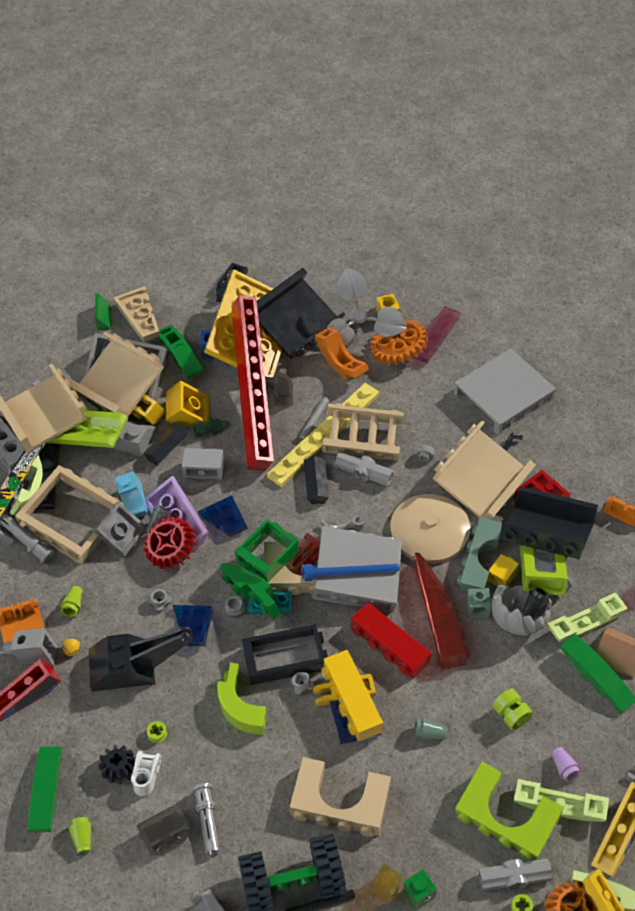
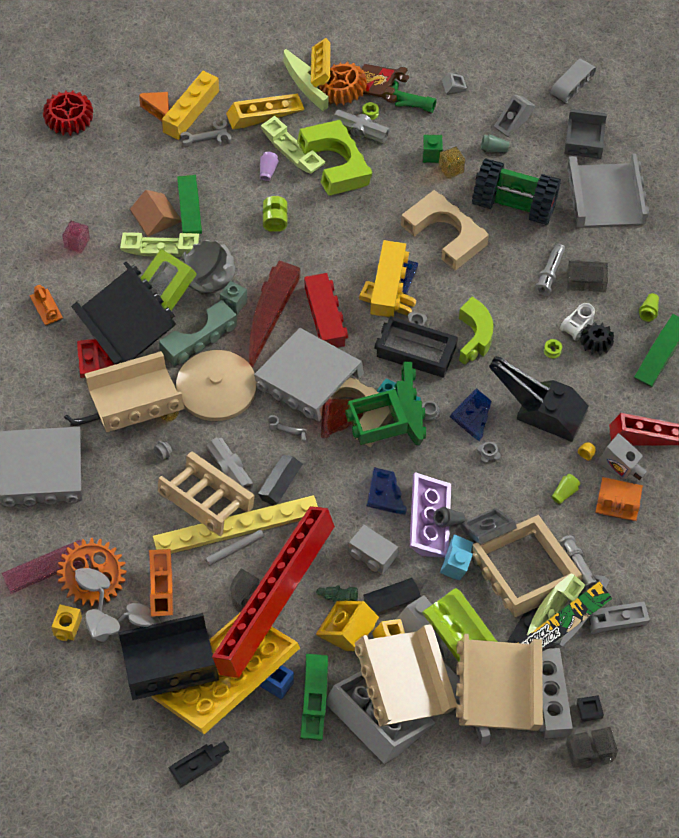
camera: 150 degrees left, 5 degrees up
(102, 313) = (362, 803): green slope -> none
(139, 313) = (324, 776): tan wing -> none
(163, 554) = (456, 479): red gear -> none
(311, 572) = (357, 370): blue piece -> none
(429, 730) = (347, 238): sand green cone -> none
(503, 571) = (191, 312): yellow brick -> none
(535, 601) = (195, 260): black cone -> none

